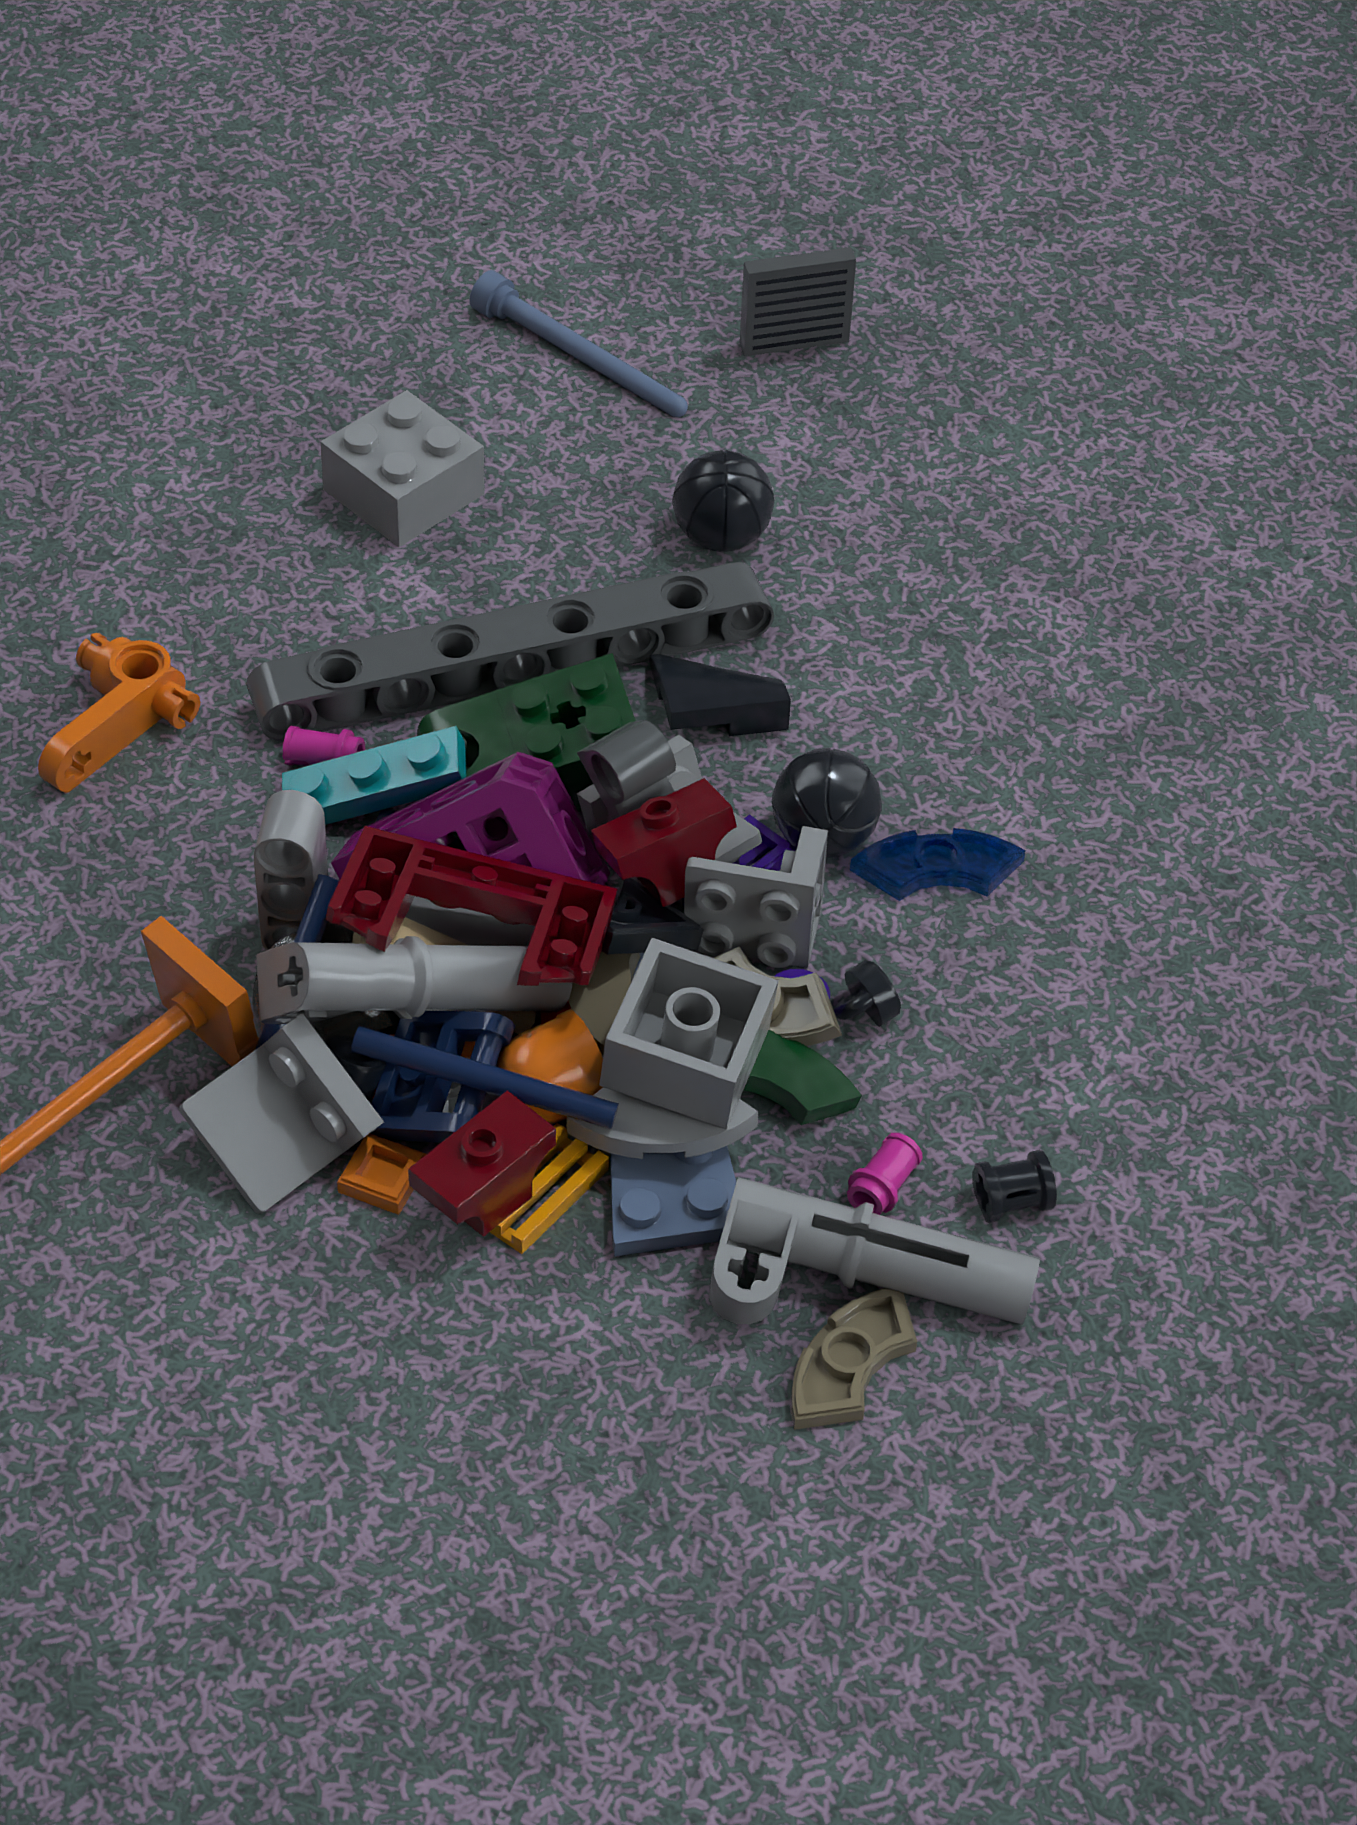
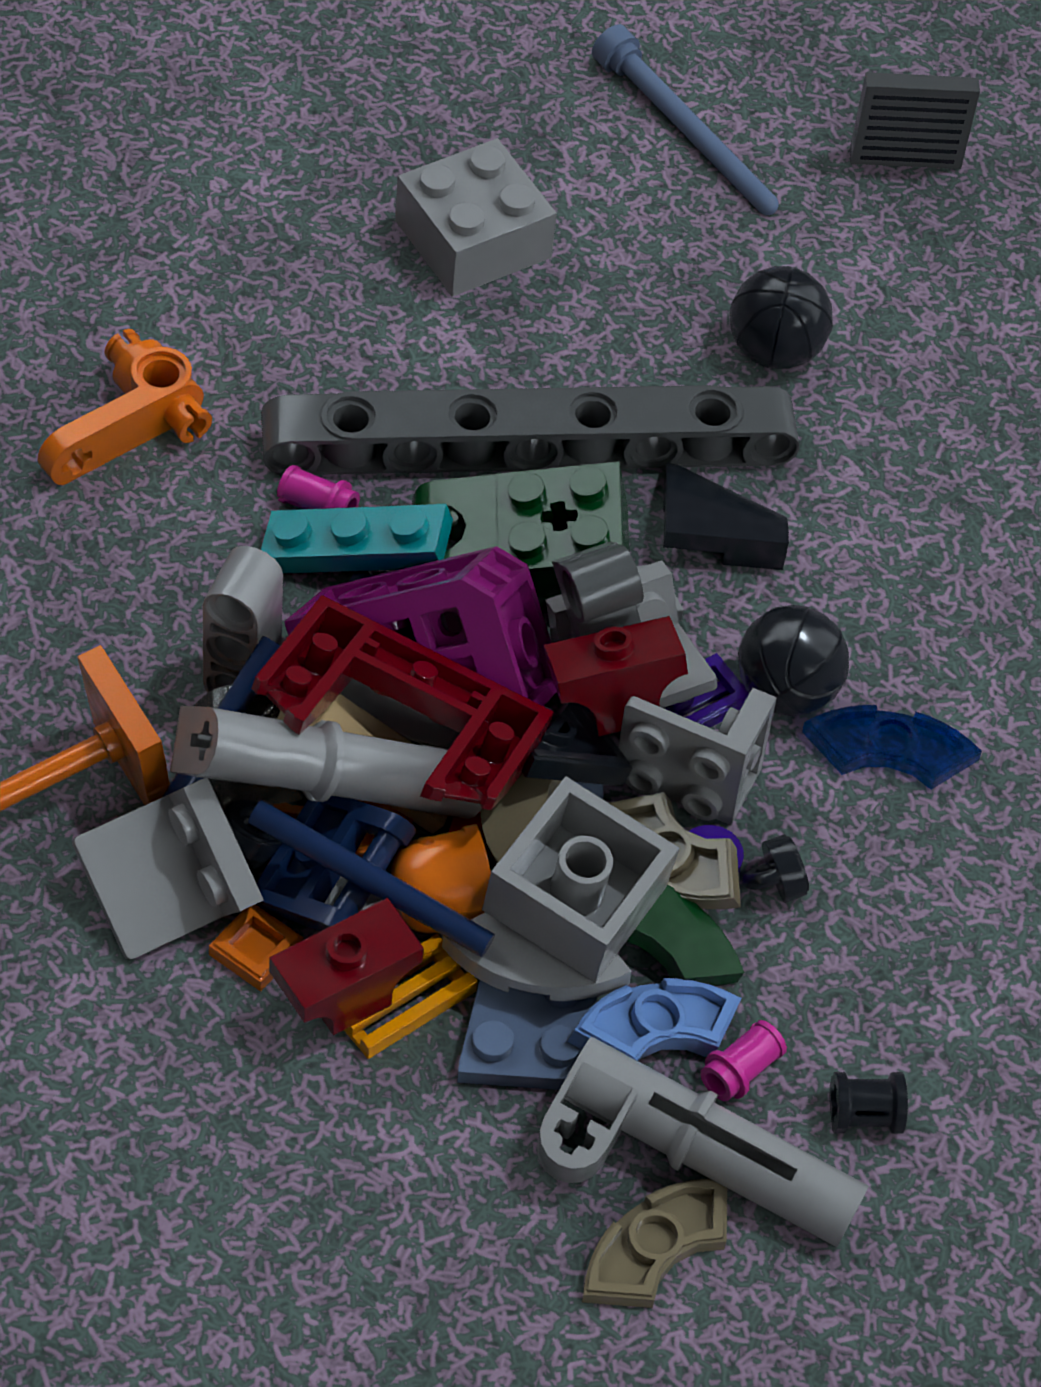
camera: 10 degrees right, 5 degrees up
(795, 1152) = (659, 1017): none -> medium blue tile

